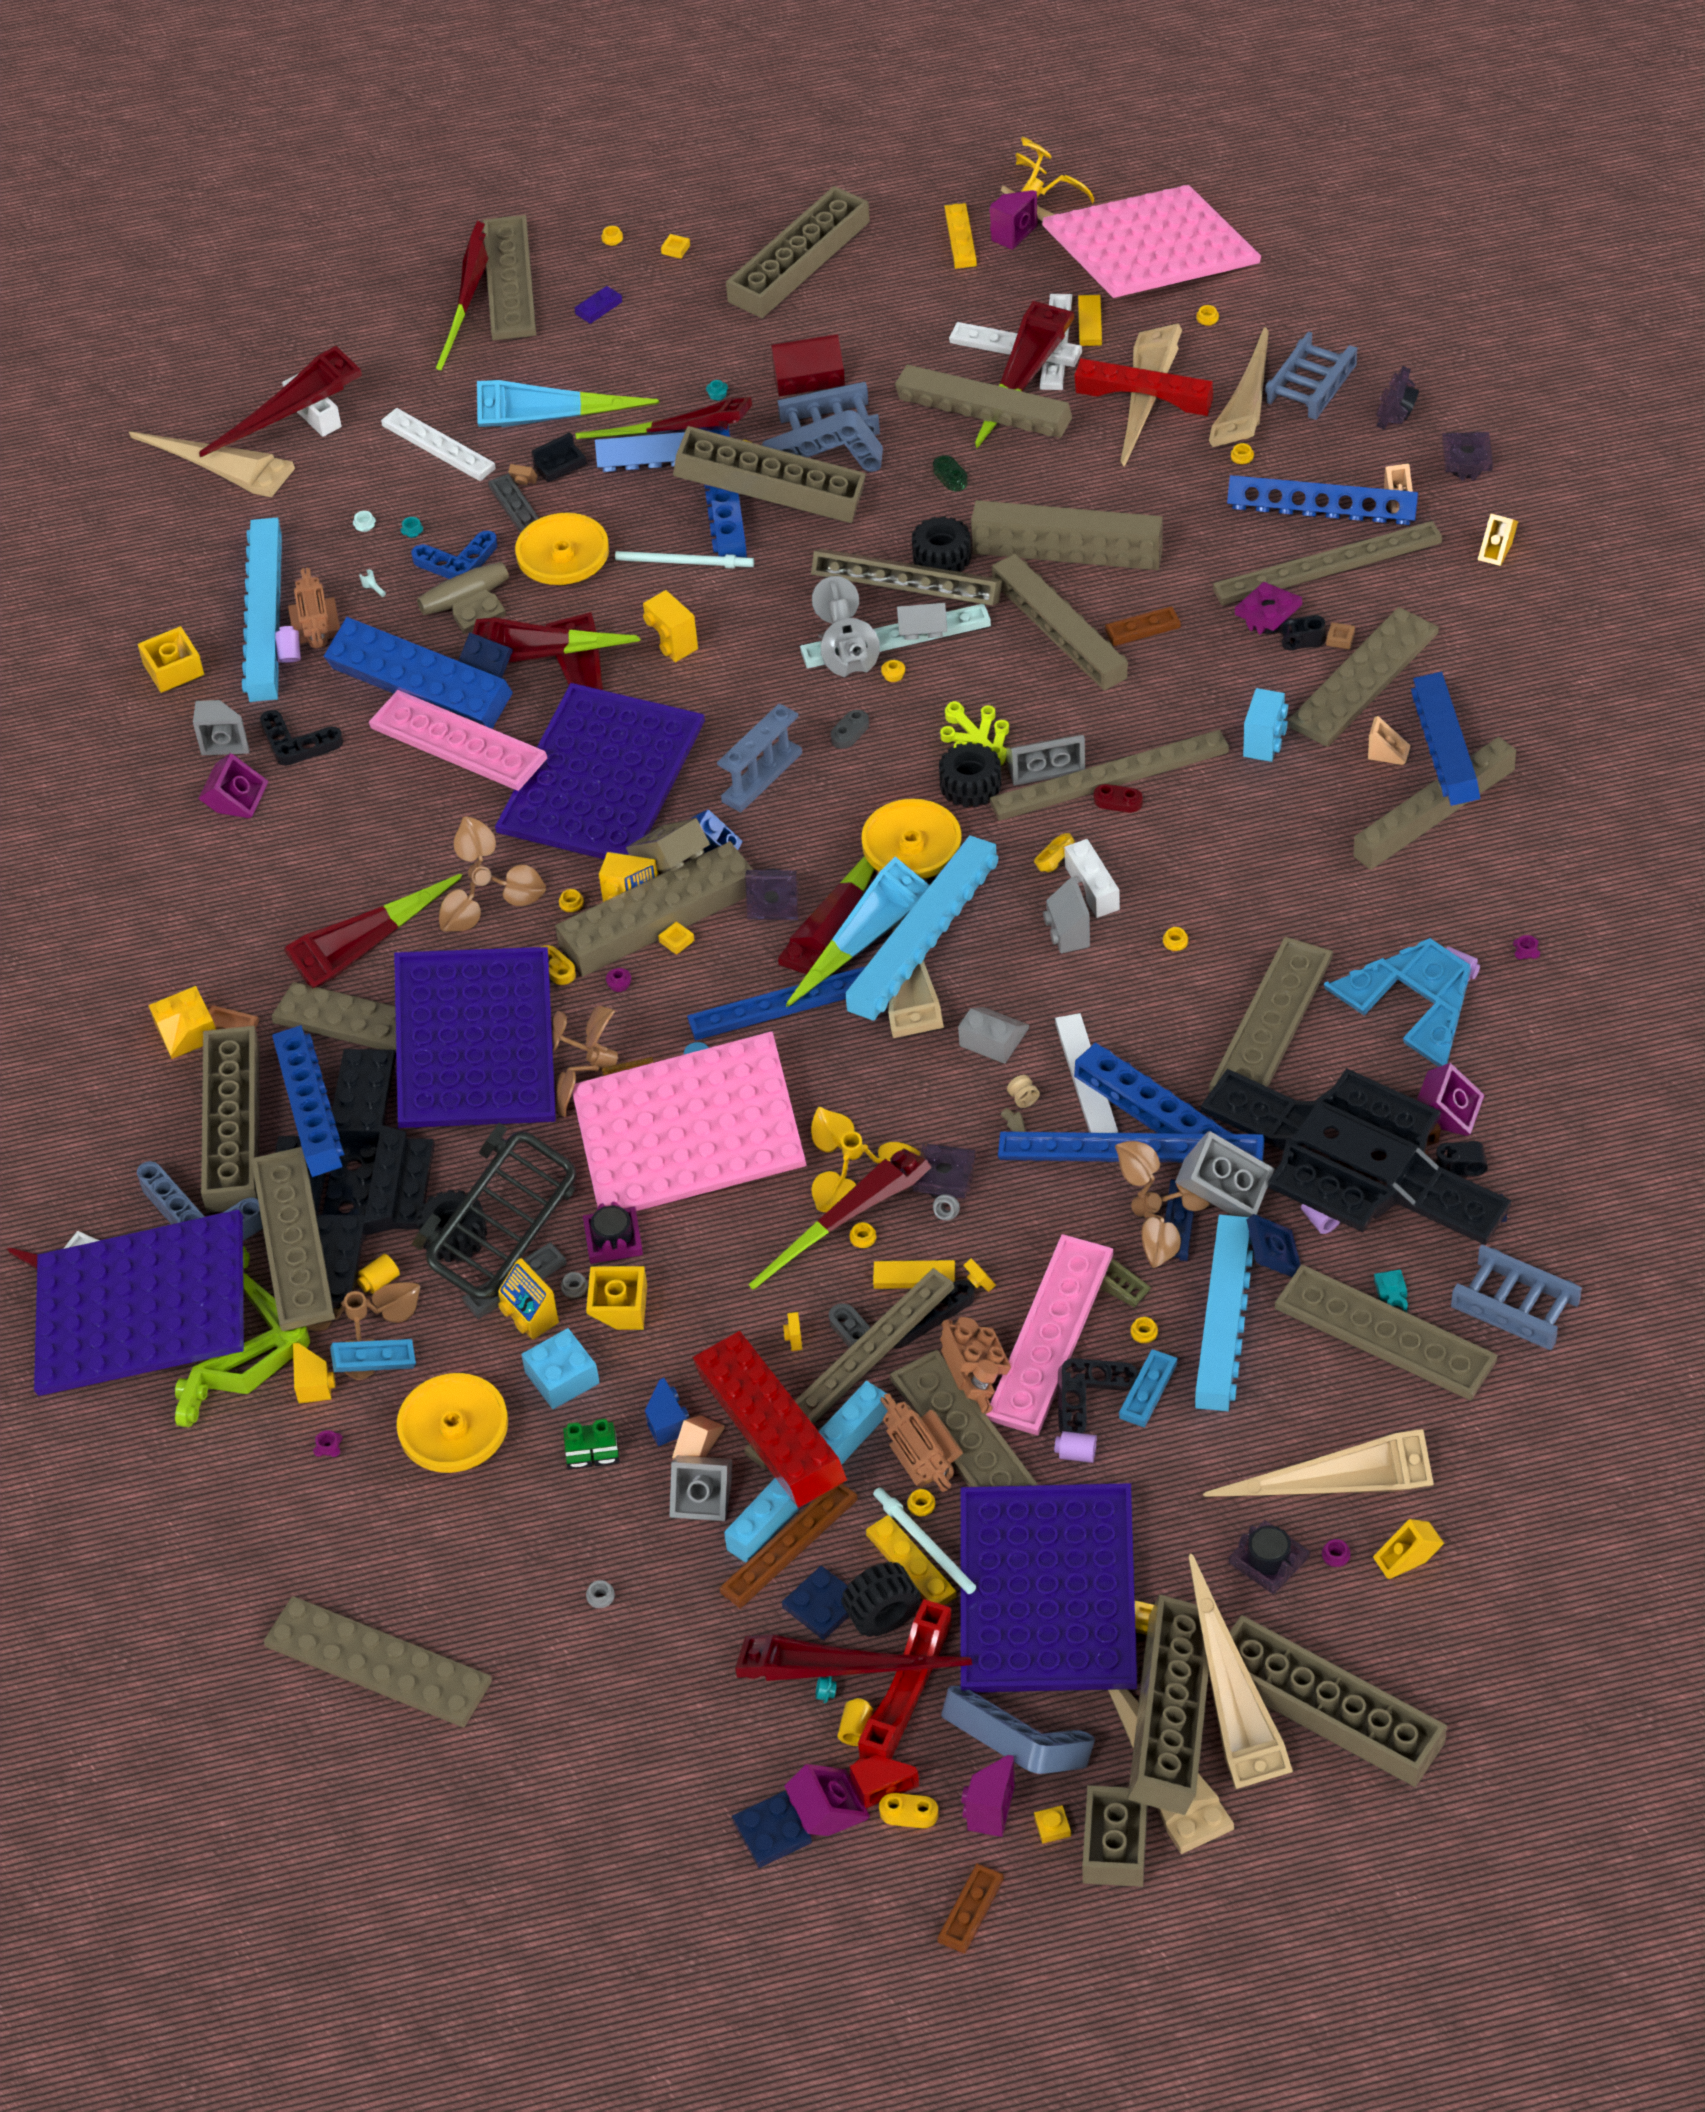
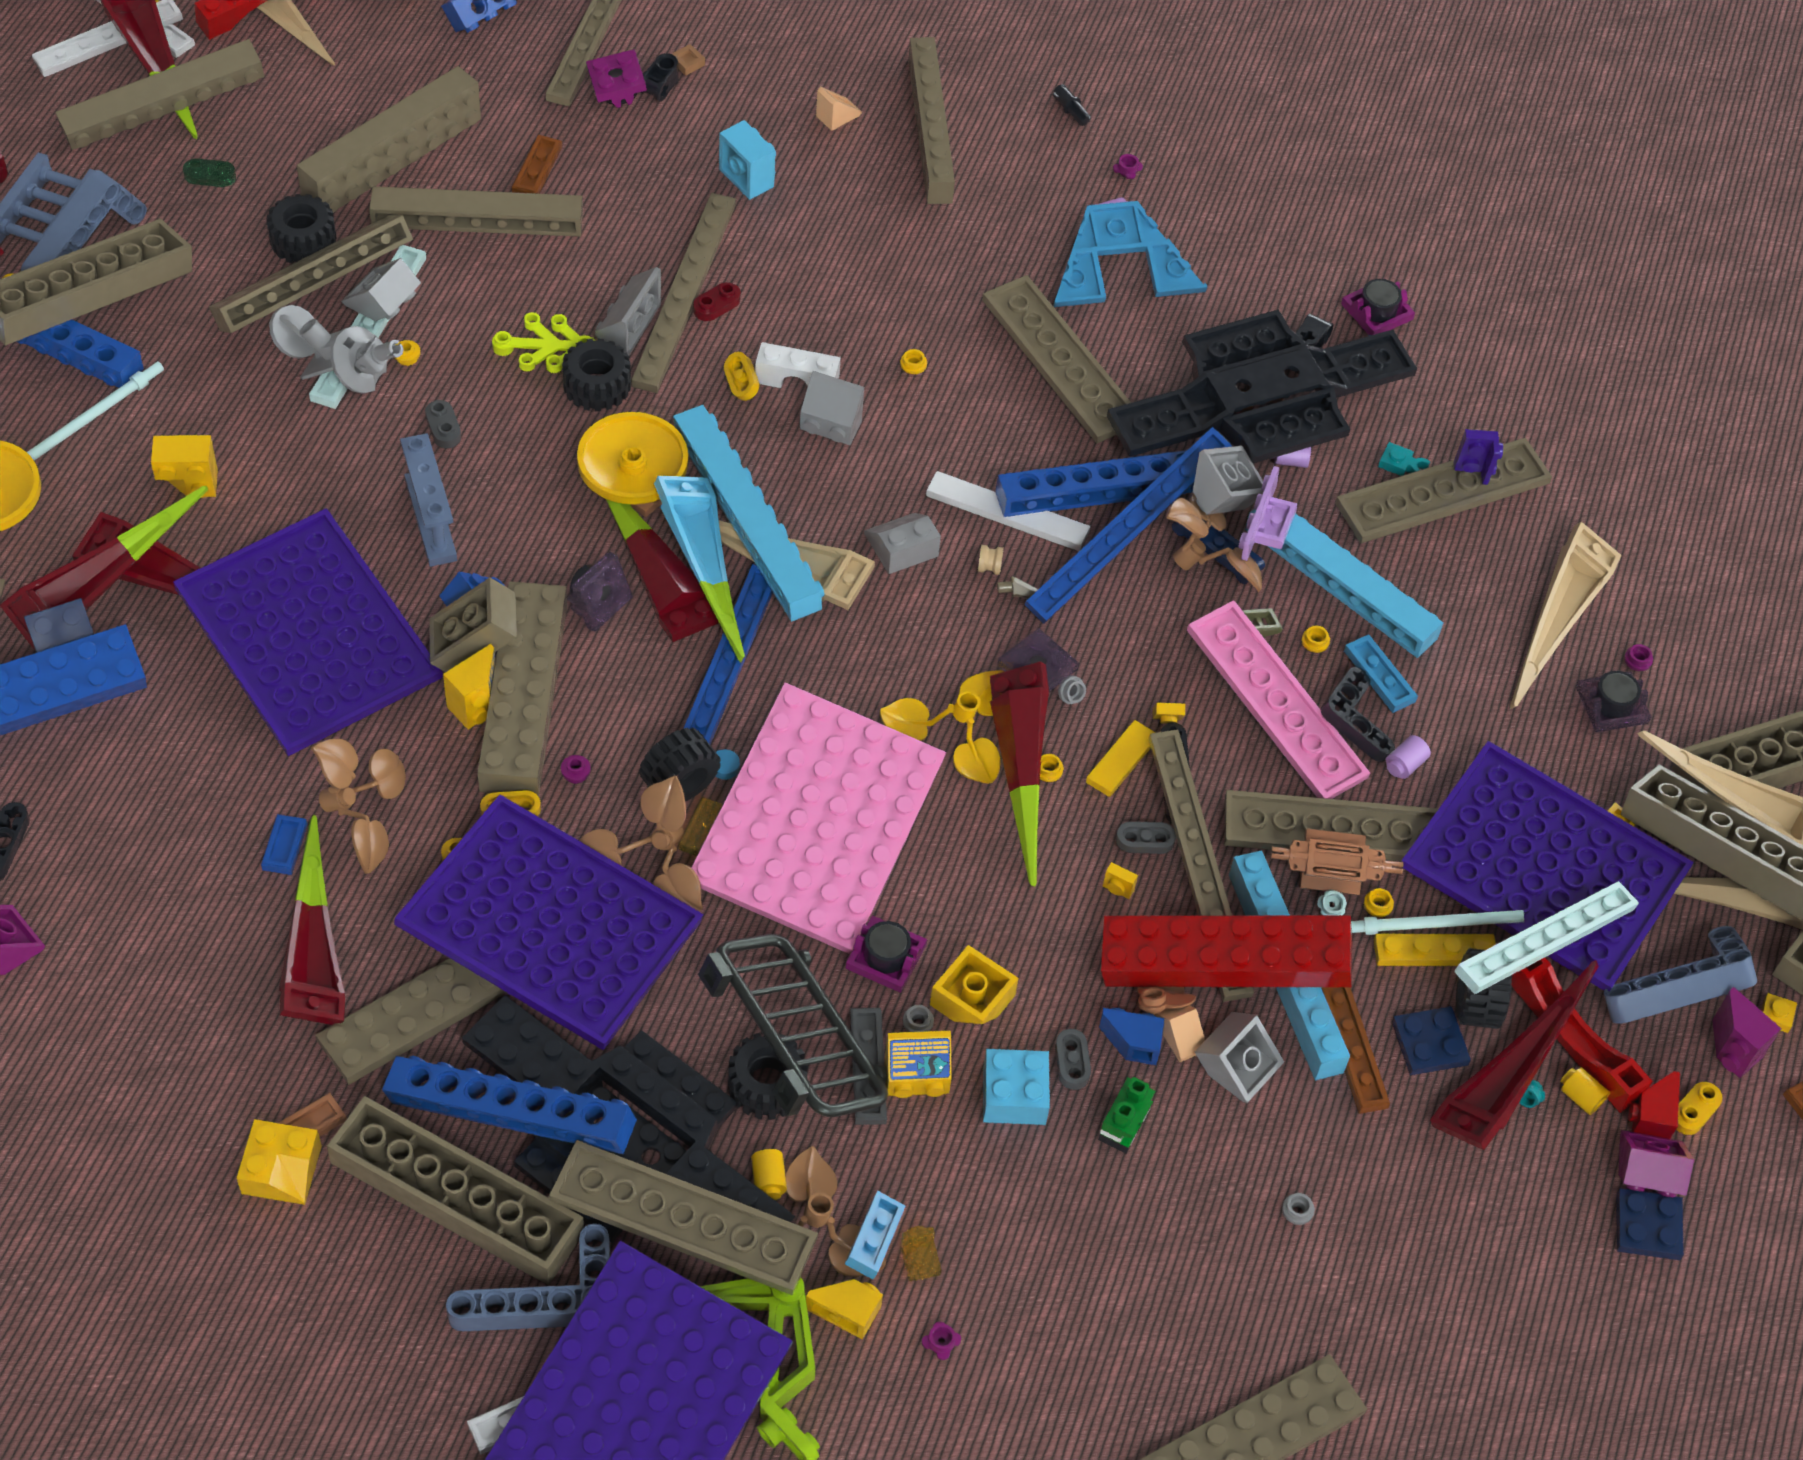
camera: 65 degrees left, 5 degrees up
(385, 1394) = (920, 1253): none -> clear yellow bracket
(426, 875) = (284, 844): none -> blue tile
(452, 1422) = (1013, 1213): yellow dish -> none
(458, 740) = (142, 713): bright pink plate -> none
(571, 900) = (437, 742): yellow plate -> none
(613, 1390) = (1073, 1061): none -> dark grey plate
(656, 1024) = (685, 756): none -> black tyre
(676, 938) = (570, 695): yellow plate -> none
(709, 1412) = (1156, 999): none -> nougat plate
(888, 1467) = (1335, 897): none -> light aqua plate
(945, 1602) = (1546, 937): none -> light aqua plate
(973, 1359) = (1264, 768): nougat piece -> none
(1214, 1222) = (1270, 521): none -> lavender bracket
(1273, 1245) = (1316, 504): dark blue plate -> none
(1362, 677) = (743, 71): dark tan plate -> none
(1408, 1548) = (1672, 610): yellow slope -> none
(1423, 1323) = (1479, 453): none -> dark purple bracket
(1445, 739) = (886, 64): blue brick -> none
(1454, 1096) = (1238, 300): magenta slope -> none
(1506, 1317) = (1476, 413): sand blue fence -> none
(1543, 1185) = (1379, 306): none -> piece
(1555, 876) = (1071, 104): none -> black axle

